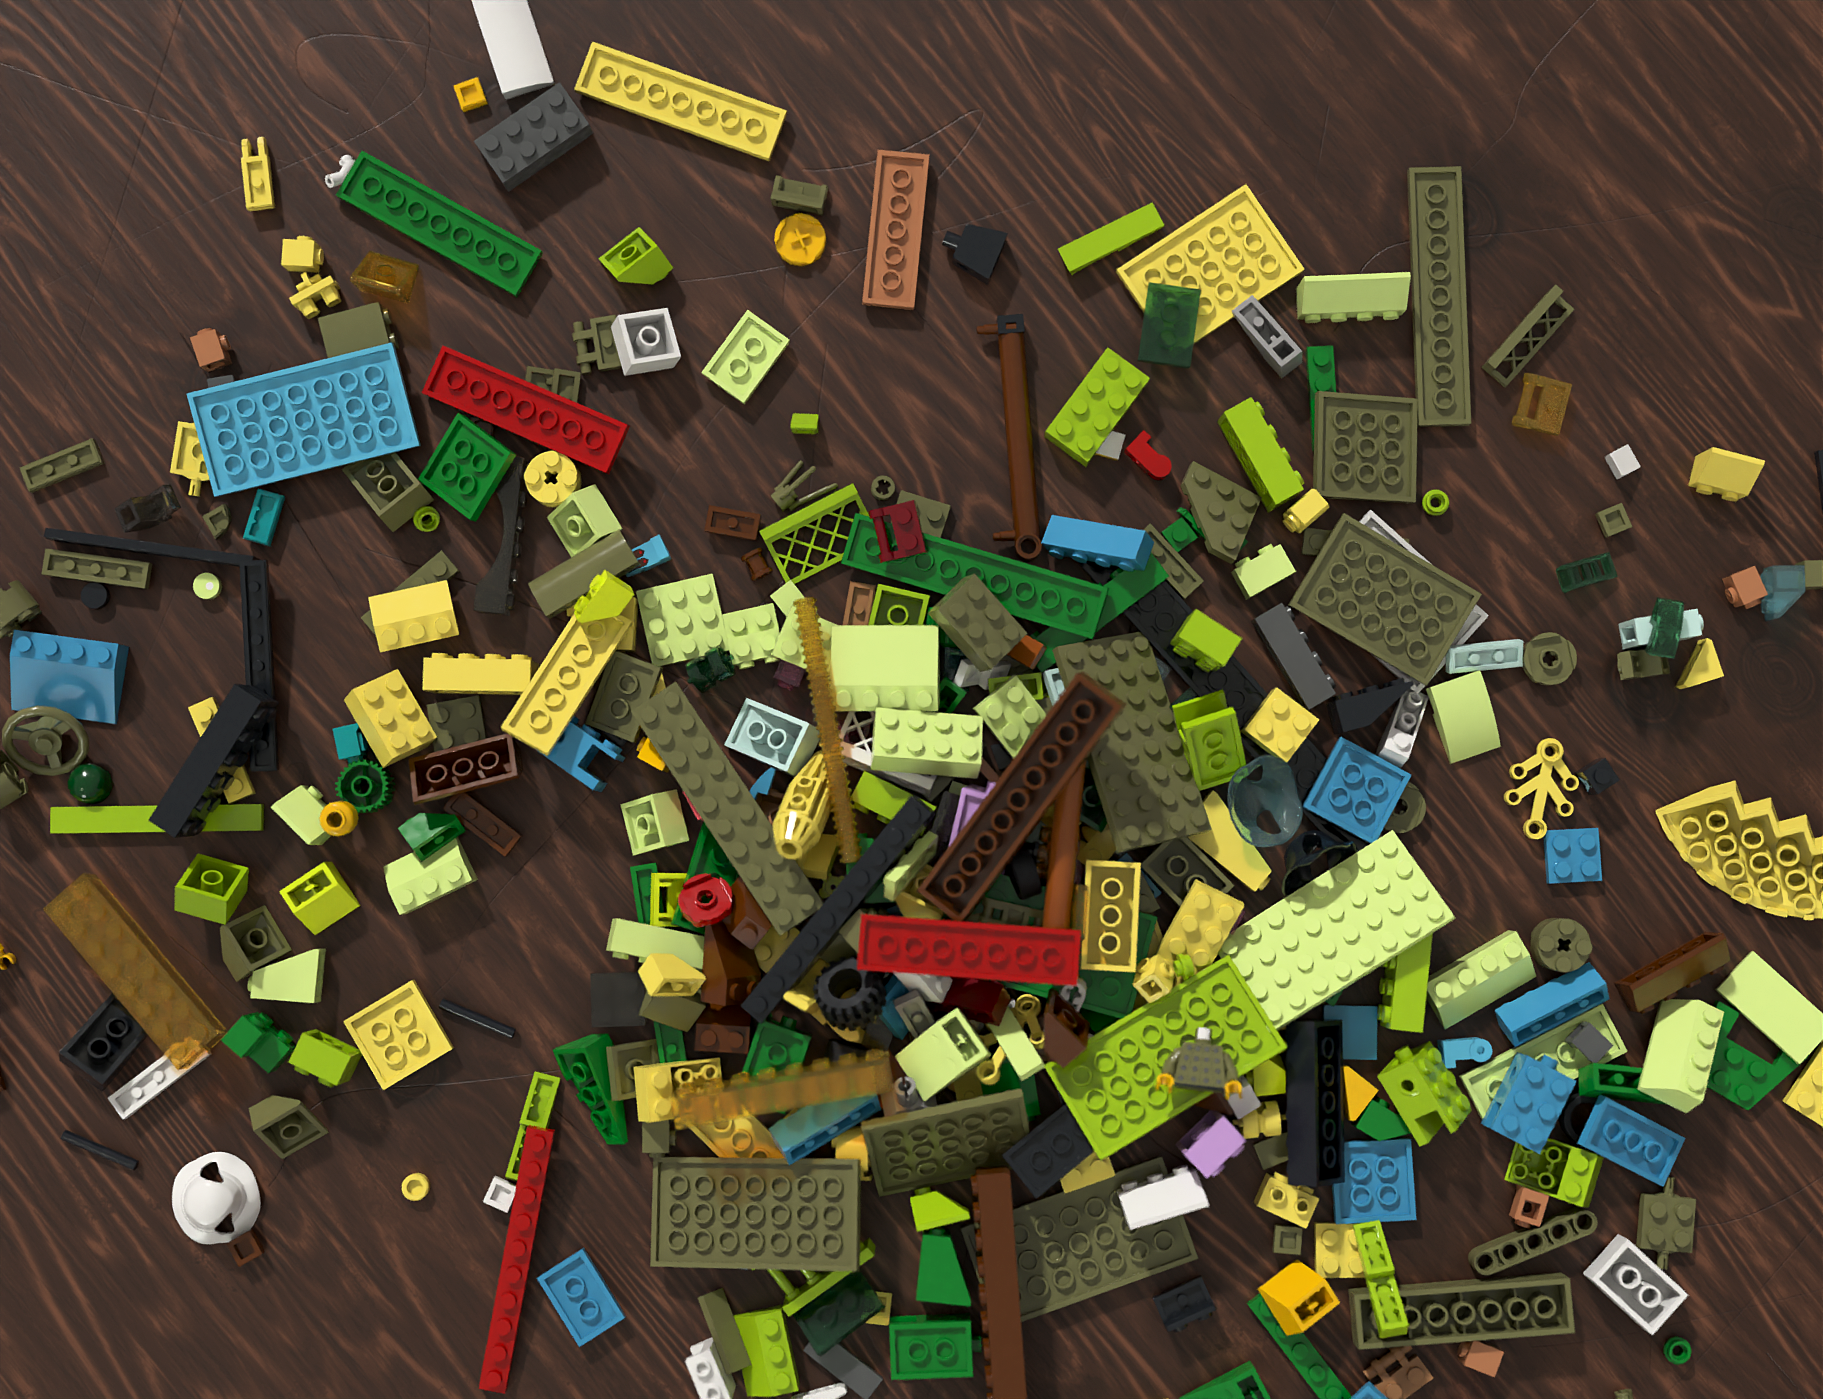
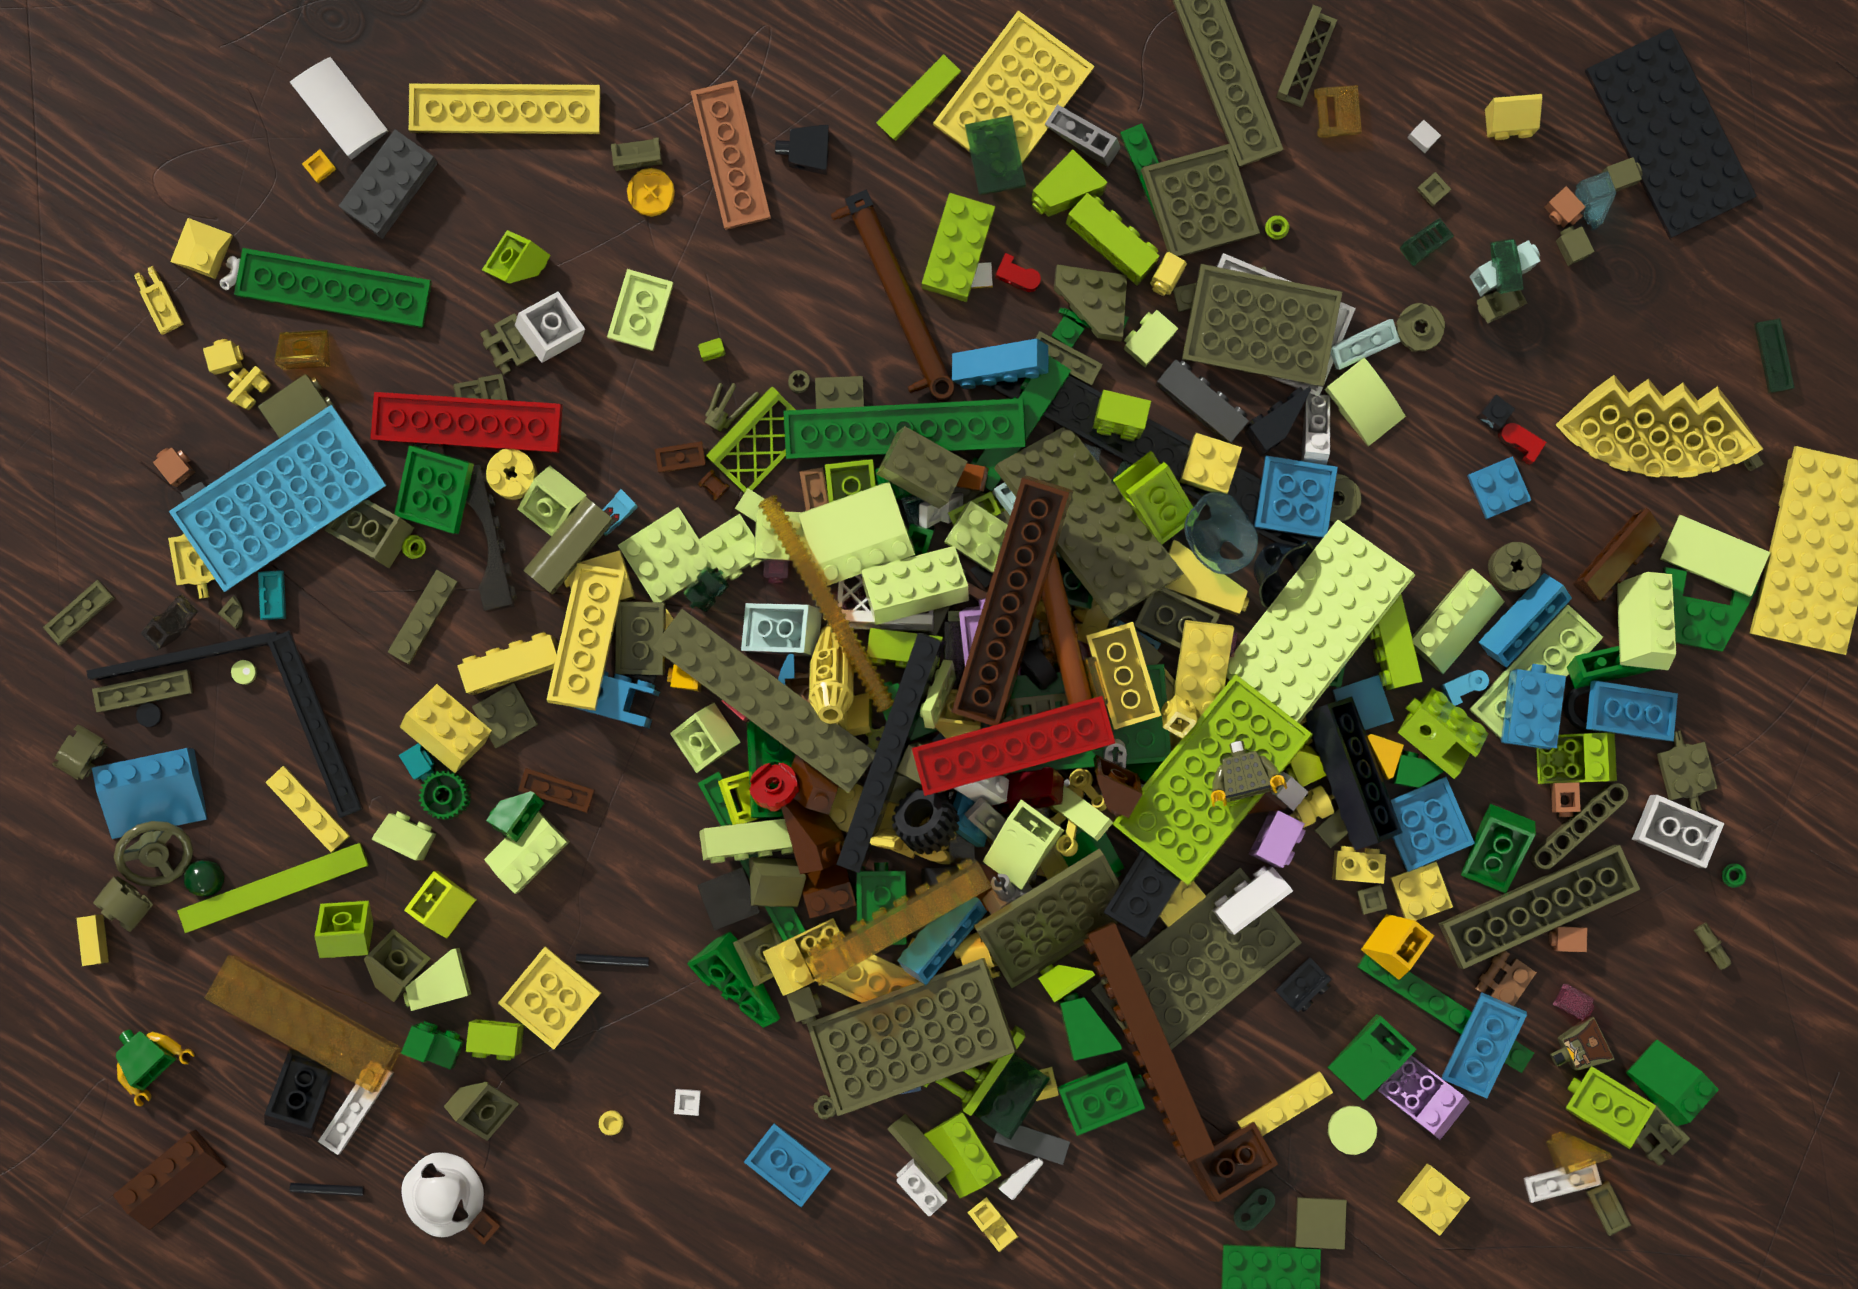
camera: 25 degrees left, 0 degrees up
(214, 761) = (308, 818): black brick -> none
(321, 136) = (201, 248): none -> light yellow slope
(338, 818) = (433, 828): yellow head -> none
(413, 616) = (434, 633): light yellow slope -> none
(465, 768) = (525, 748): reddish brown slope -> none
(516, 1259) = (720, 1151): red plate -> none
(535, 1113) = (694, 1037): lime slope -> none
(604, 600) = (595, 560): neon yellow slope -> none
(636, 1255) = (824, 1113): none -> olive plate
(670, 976) = (766, 861): light yellow slope -> none
(906, 530) = (832, 409): dark red plate -> none
(1183, 966) = (1201, 697): lime plate -> none
(1232, 382) = (1067, 185): none -> lime slope
(1352, 296) = (1143, 76): yellowish green slope -> none
(1380, 1279) = (1460, 903): lime slope -> none
(1440, 1234) = (1499, 848): none -> green slope
(1542, 784) = (1453, 436): light yellow plant -> none
(1589, 1041) = (1567, 640): dark grey panel -> none
(1614, 815) = (1522, 440): none -> red leg
(1701, 666) = (1552, 287): light yellow slope -> none
(1741, 630) = (1574, 245): none -> olive brick

